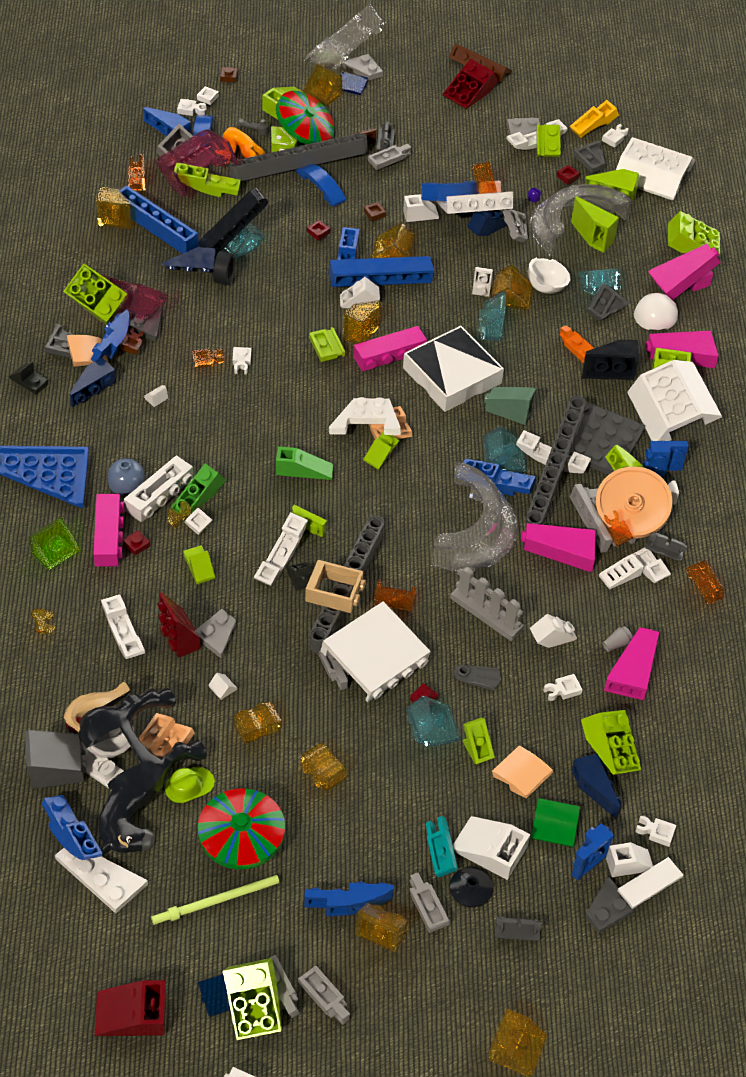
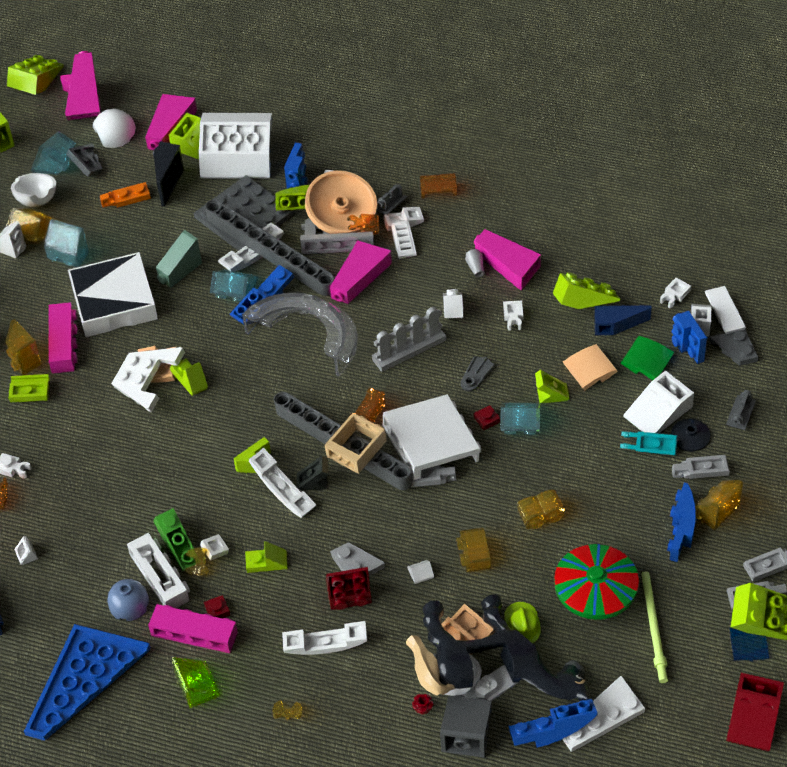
camera: 65 degrees left, 0 degrees up
(301, 464) = (180, 444): bright green slope -> none

